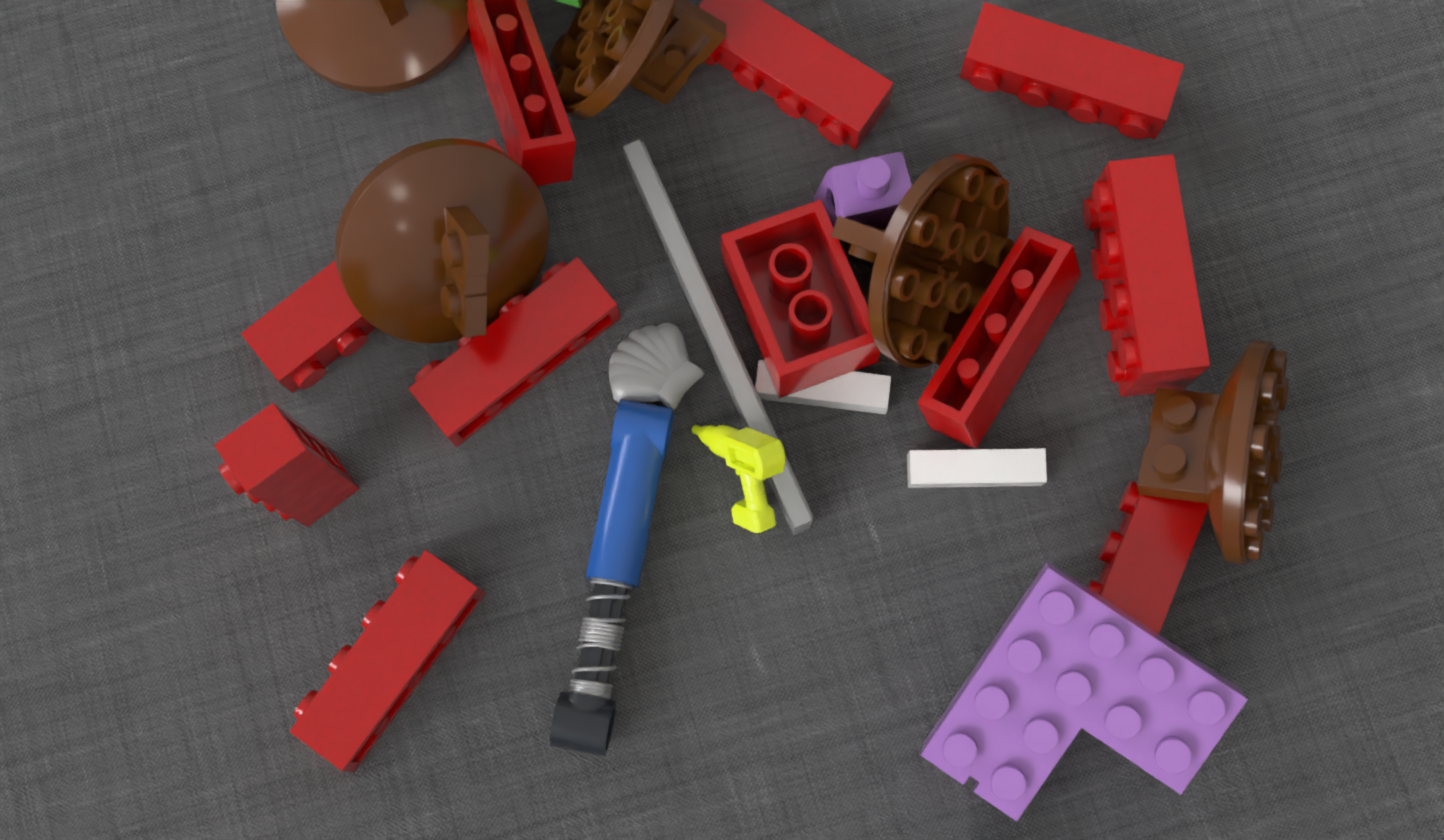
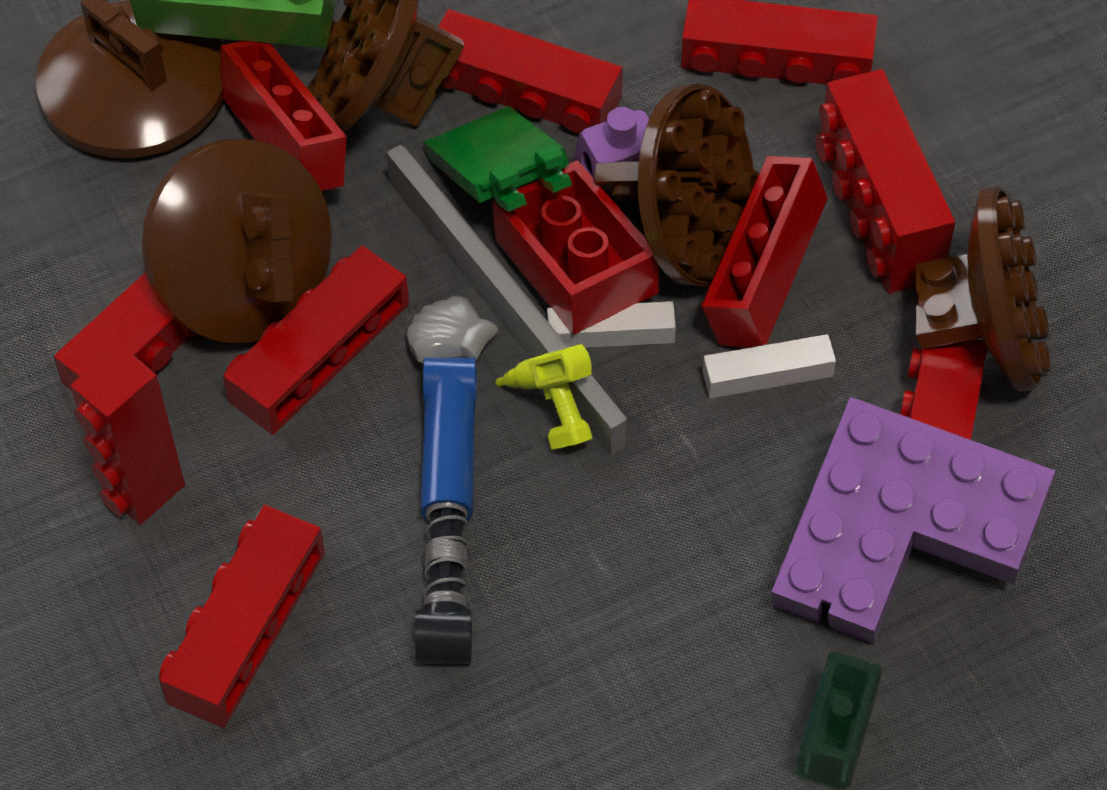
camera: 15 degrees left, 20 degrees down
(740, 176) = (497, 156): none -> green tile

